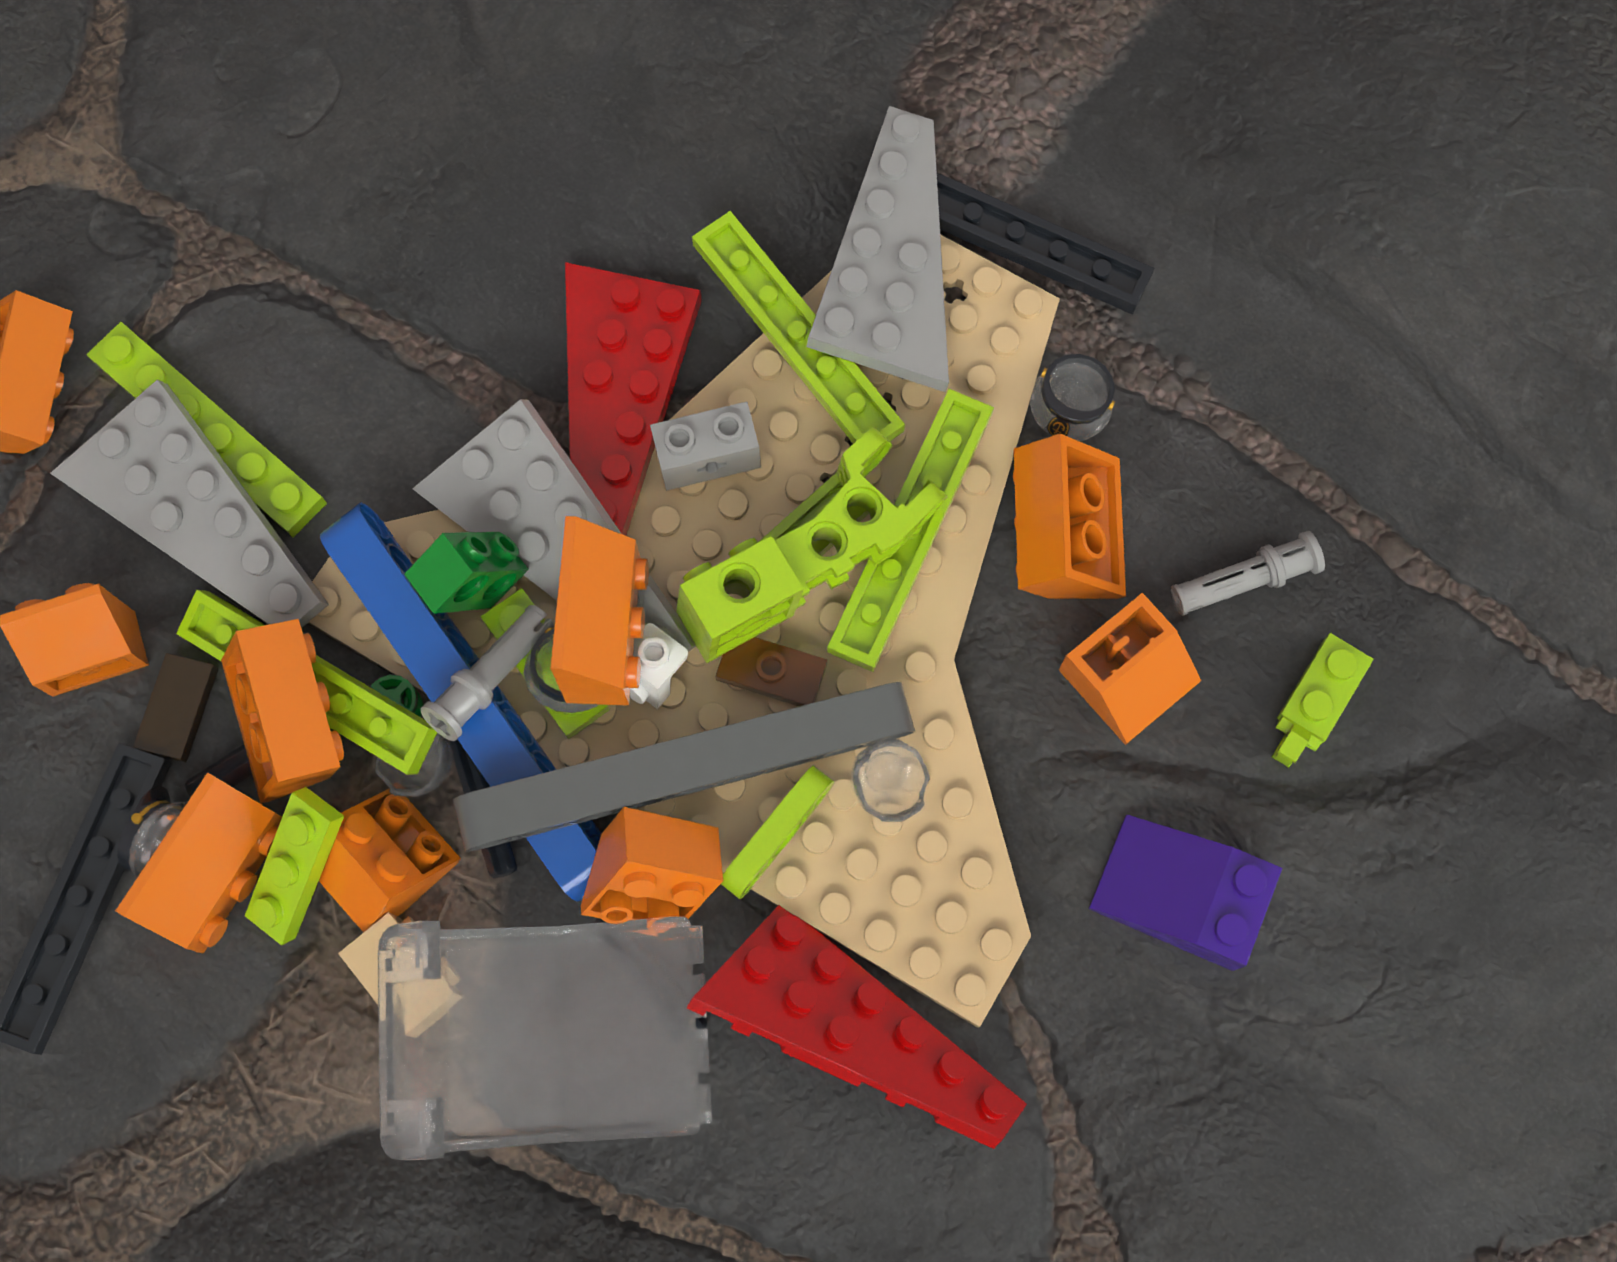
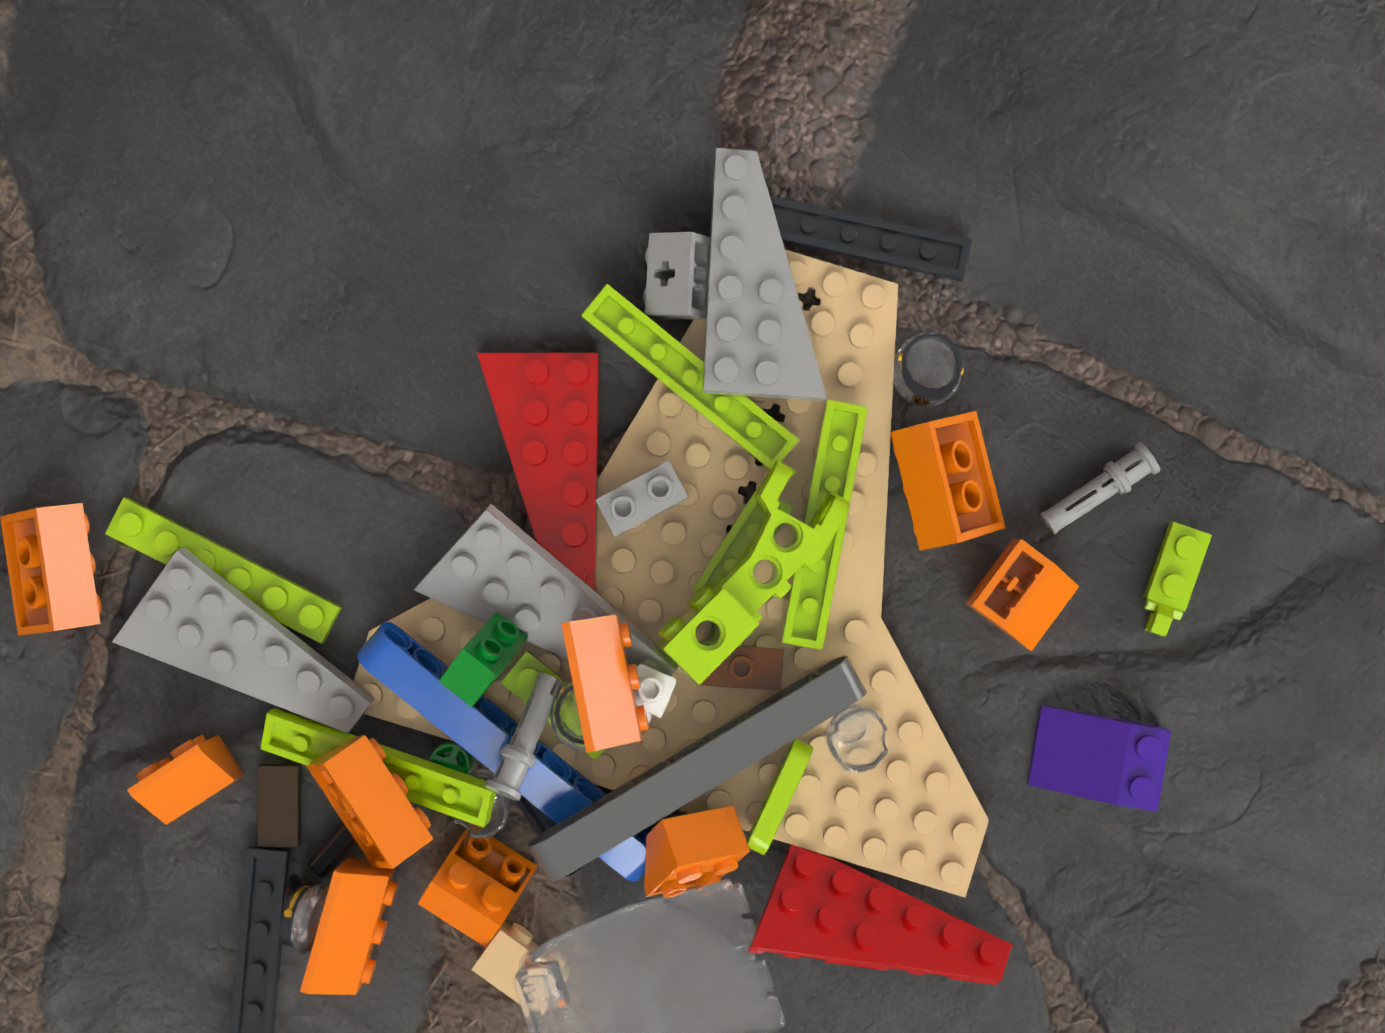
camera: 15 degrees left, 15 degrees up
(294, 865) = (417, 914): lime plate -> none
(811, 227) = (677, 275): none -> light grey brick

